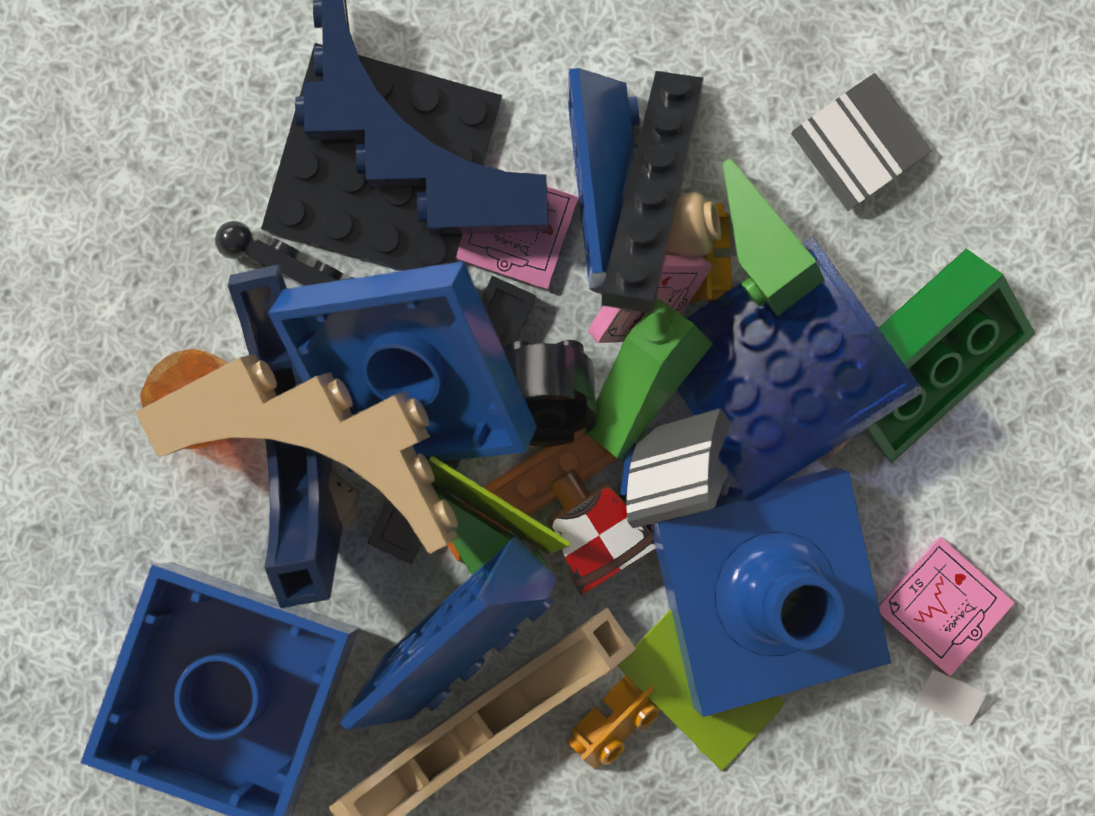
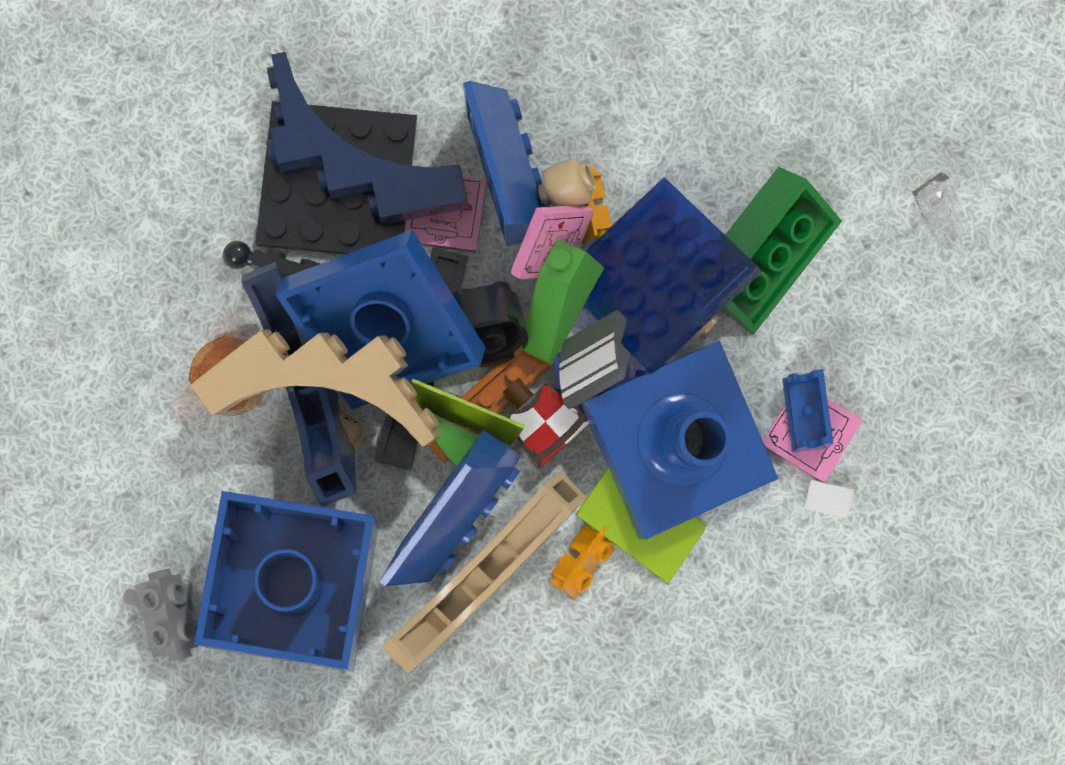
camera: 10 degrees left, 5 degrees down
(60, 698) = (165, 614): none -> light grey brick
(652, 193) = (540, 162): black plate -> none
(769, 253) = (634, 194): bright green slope -> none
(861, 141) = (687, 103): slope -> none
(946, 581) = (807, 411): none -> blue hinge

